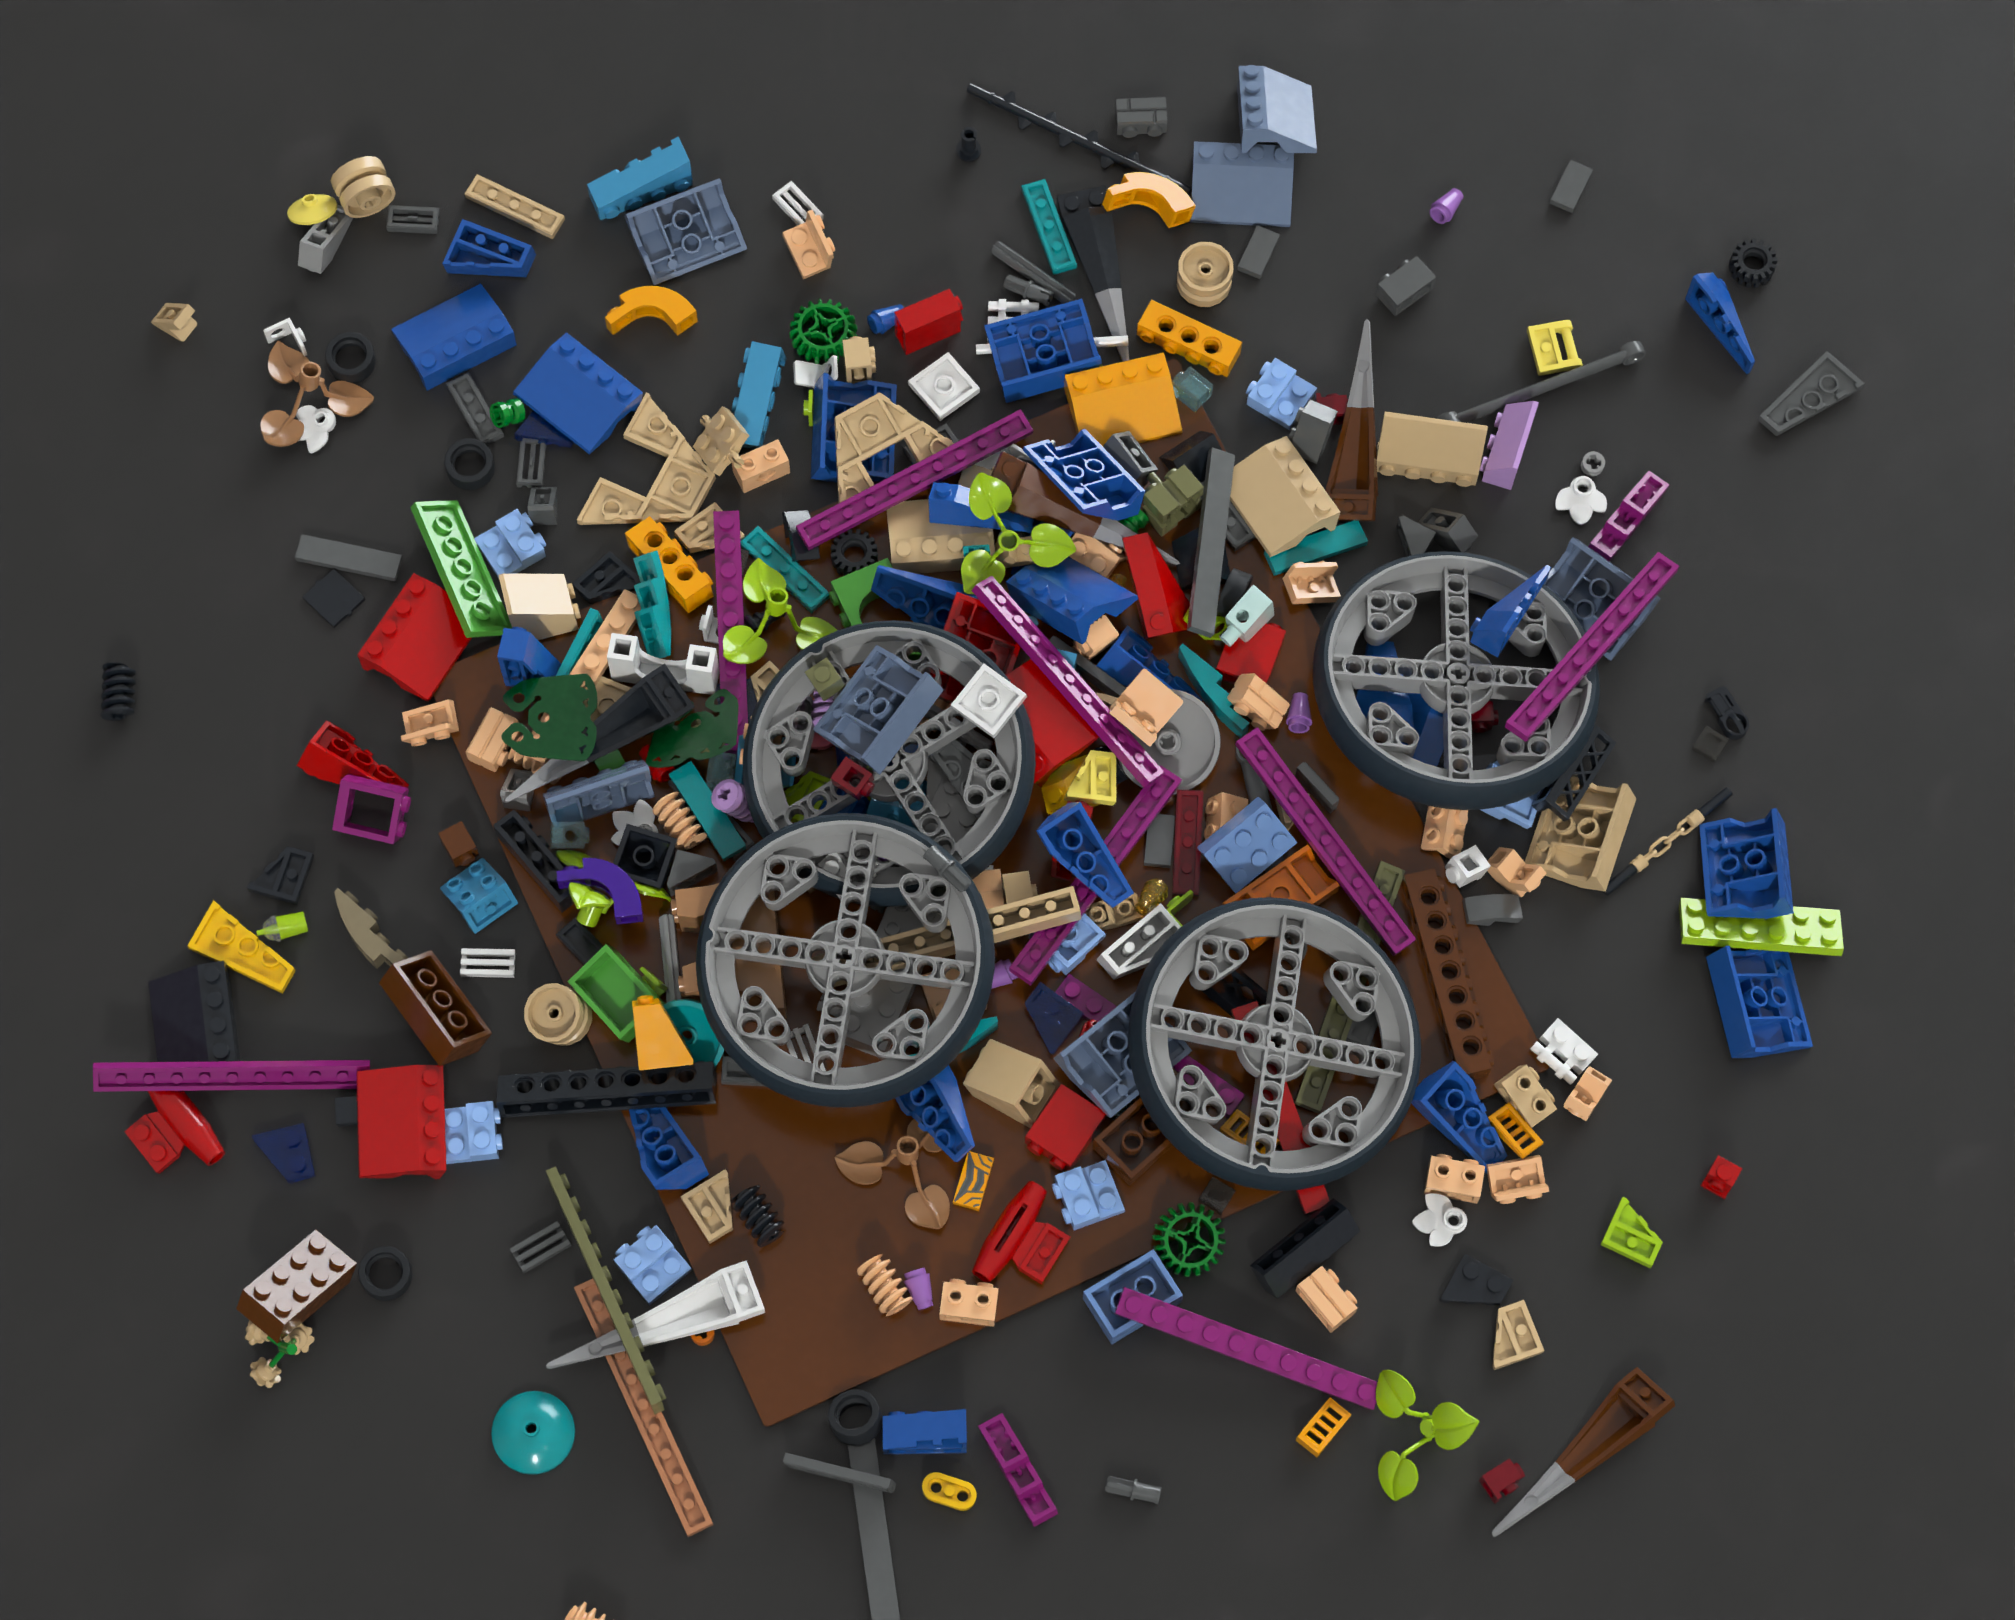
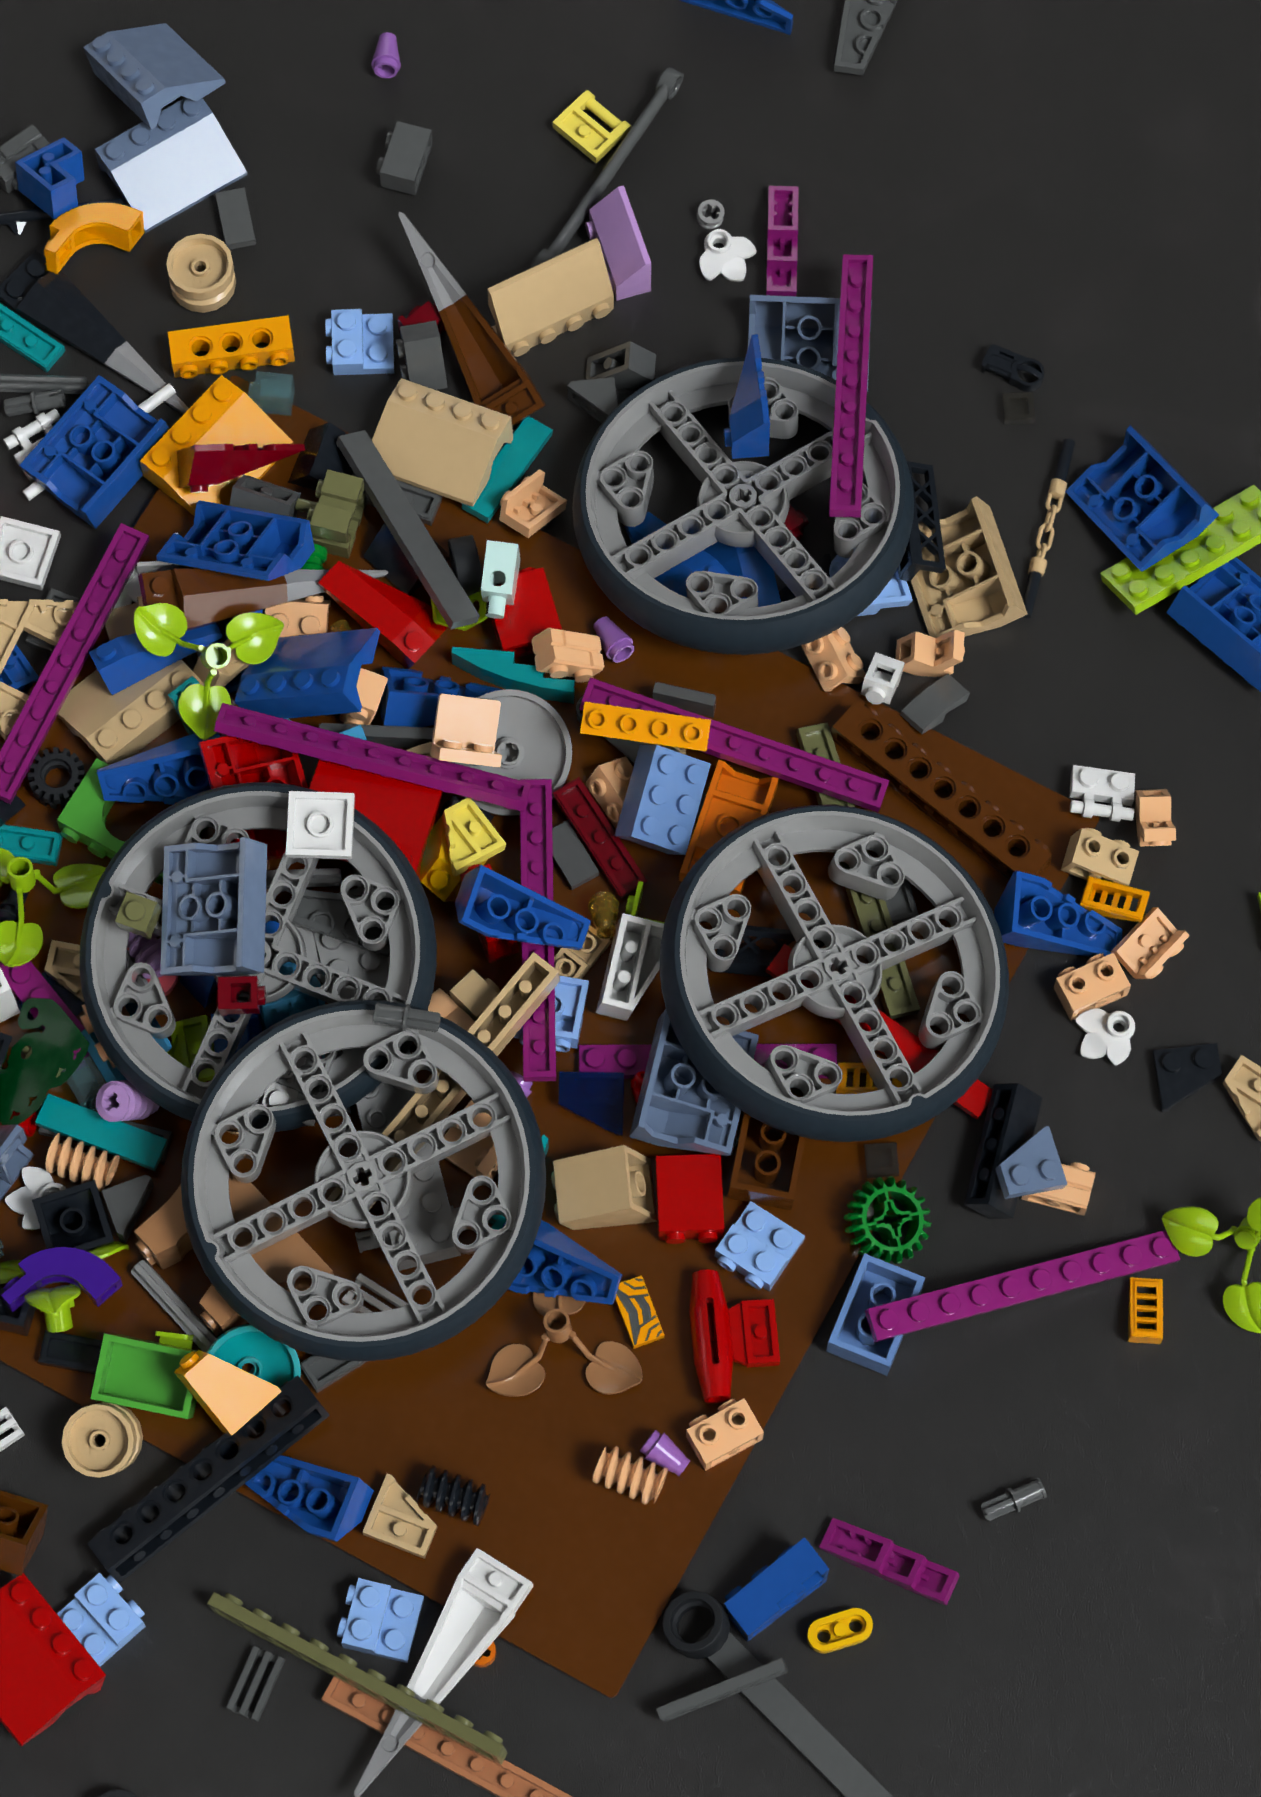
camera: 35 degrees left, 0 degrees up
(1114, 412) = (215, 463): none -> dark red wedge
(1150, 140) = (51, 177): none -> blue brick
(1268, 786) = (645, 726): none -> light orange brick
(1313, 1272) = (1032, 1168): none -> sand blue wing

